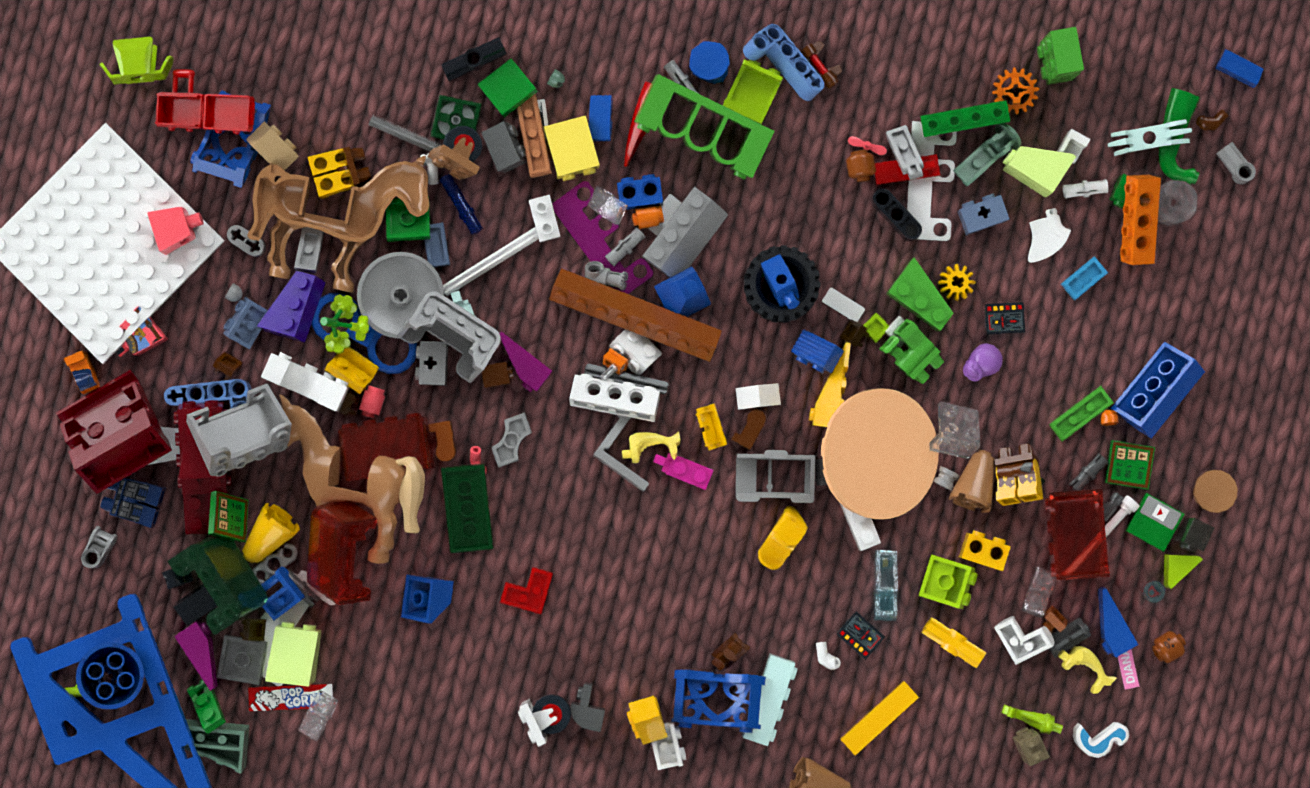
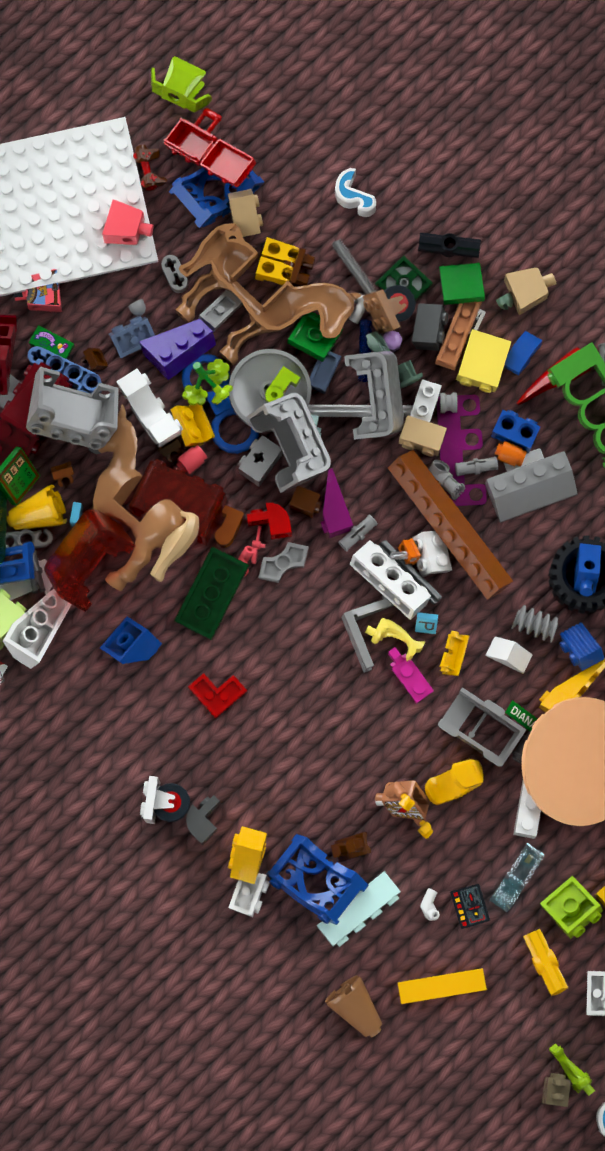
camera: 35 degrees right, 10 degrees down
(147, 149) = (144, 156): none -> reddish brown piece
(178, 374) = (51, 342): none -> green tile
(265, 484) = (61, 471): none -> dark orange tile
(303, 514) = (76, 513): none -> medium azure tile
(336, 641) = (35, 629): none -> white wedge
(358, 70) = (353, 198): none -> white animal
(407, 288) = (281, 384): none -> lime leg
(478, 440) = (256, 544): none -> coral piece
(480, 180) = (393, 340): none -> lavender tile
(480, 405) = (274, 516): none -> red brick
(488, 204) = (406, 370): none -> sand green piece
(503, 235) = (384, 393): none -> light grey windscreen
(561, 251) = (422, 436): none -> tan brick
(563, 357) = (346, 542): none -> light grey pin
(564, 205) = (448, 402): none -> light grey wheel
(569, 54) = (528, 288): none -> tan torso
(607, 205) = (483, 423): clear slope -> none
(670, 415) = (426, 623): none -> medium azure tile
(683, 293) = (501, 532): blue slope -> none
(753, 583) = (406, 800): none -> torso
(755, 422) = (486, 677): reddish brown leg -> none
(764, 355) = (536, 623): none -> light grey piece
(804, 444) = (521, 715): none -> green sticker

